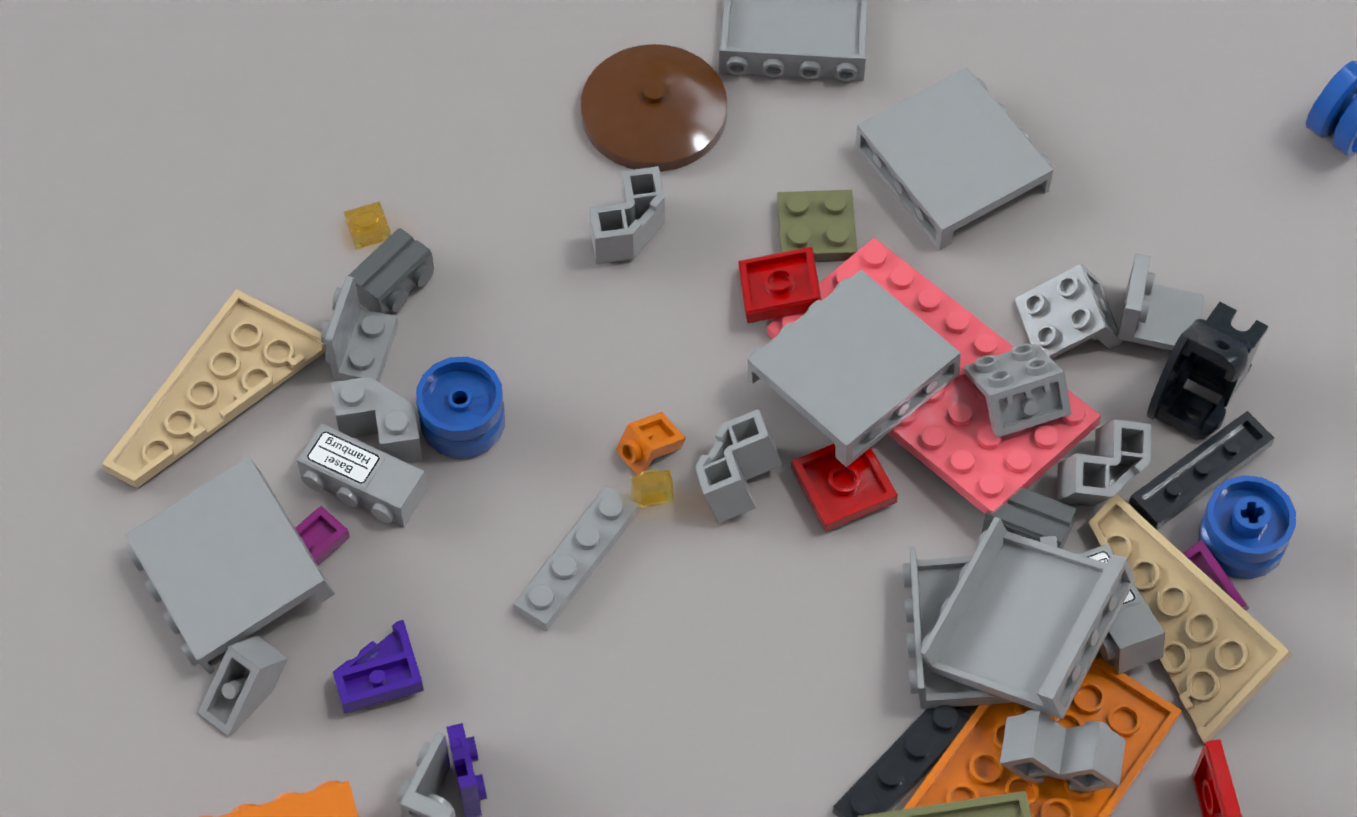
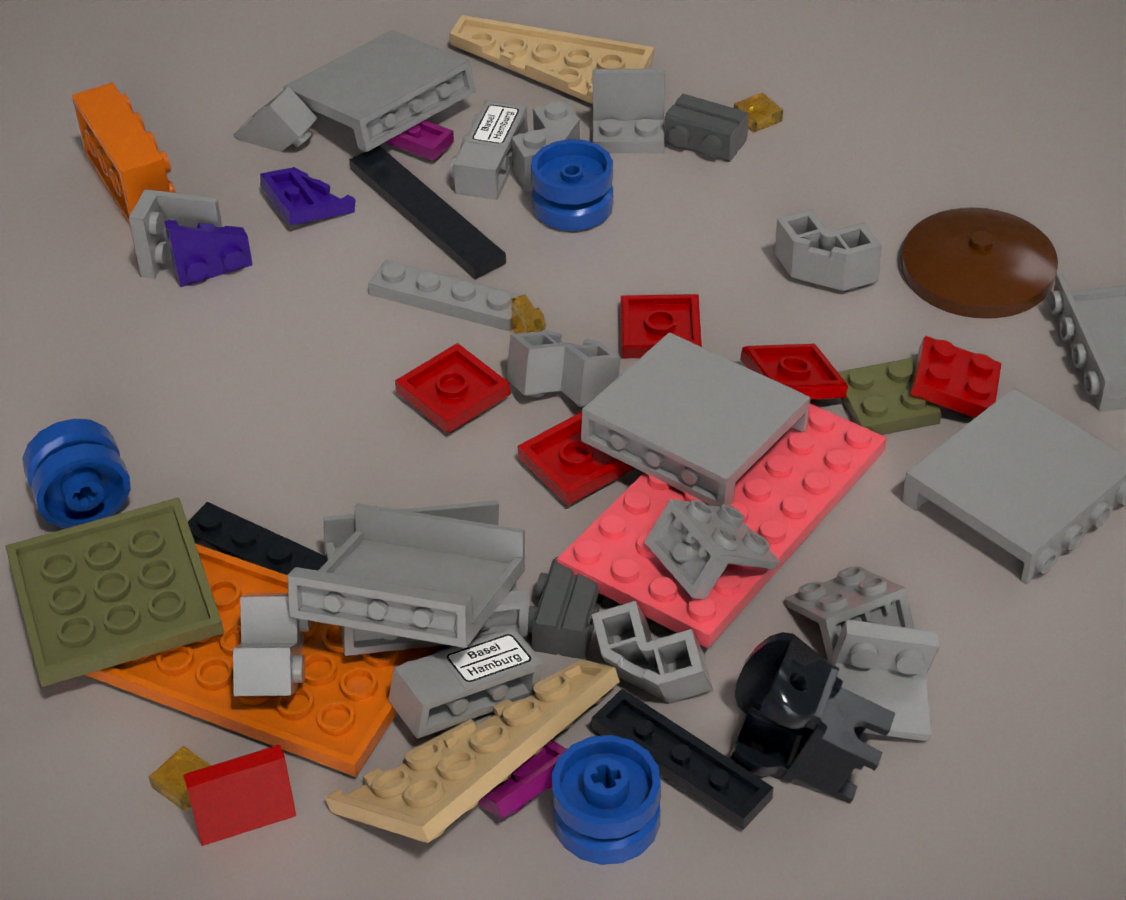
camera: 80 degrees right, 15 degrees down
(435, 556) = (428, 212): none -> black tile
(648, 440) = (582, 313): orange bracket -> none
(673, 380) = (651, 317): none -> red tile
(724, 569) = (452, 387): none -> red plate
(818, 166) = (955, 377): none -> red plate

